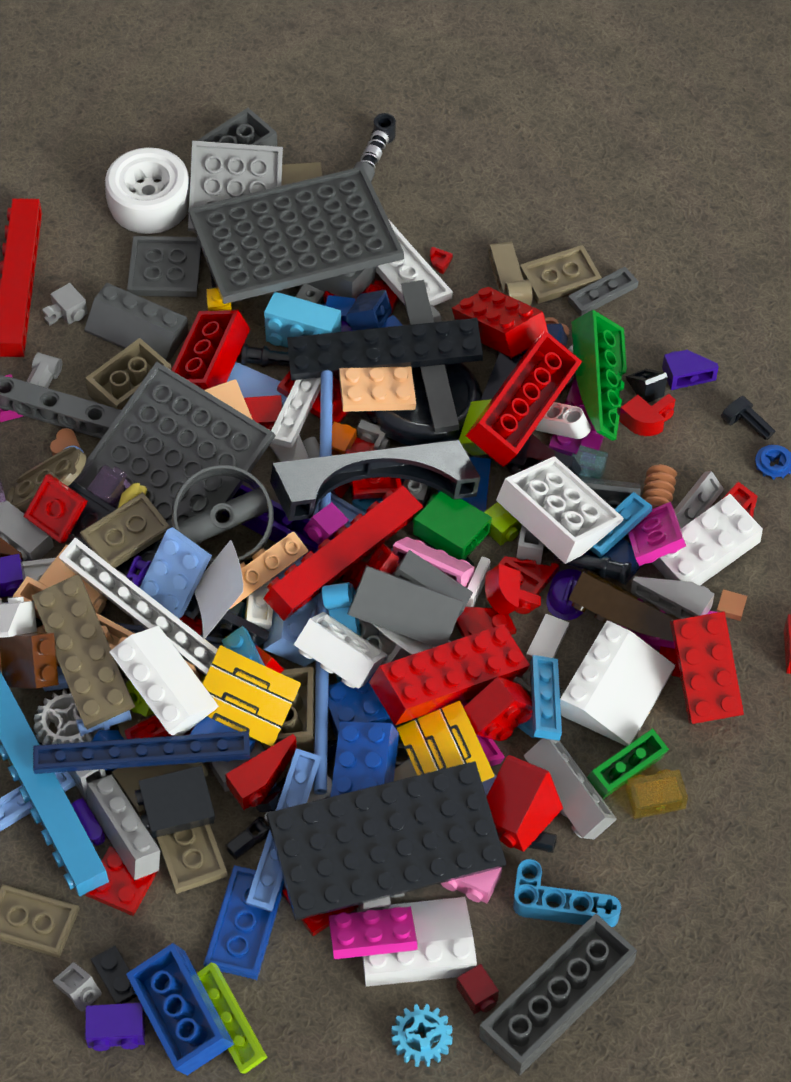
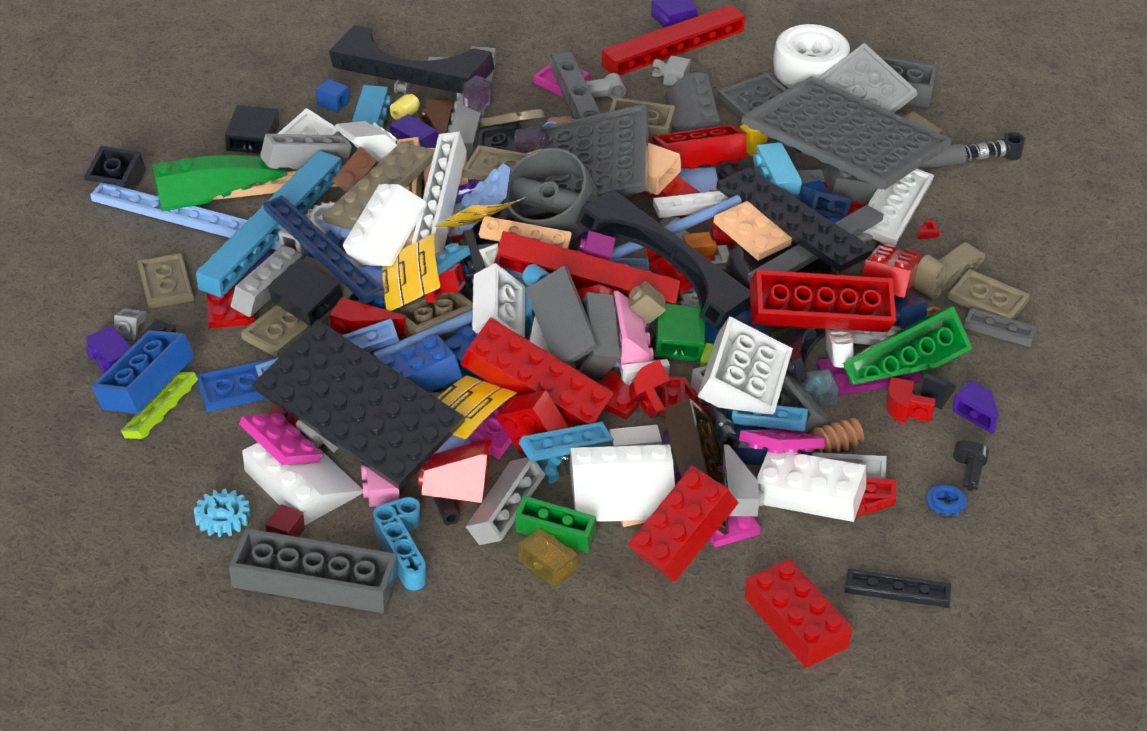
camera: 55 degrees right, 15 degrees down
(55, 508) = (488, 127): red tile -> none
(415, 528) = (647, 302): none -> dark tan brick
(732, 604) = (776, 533): nougat tile -> none

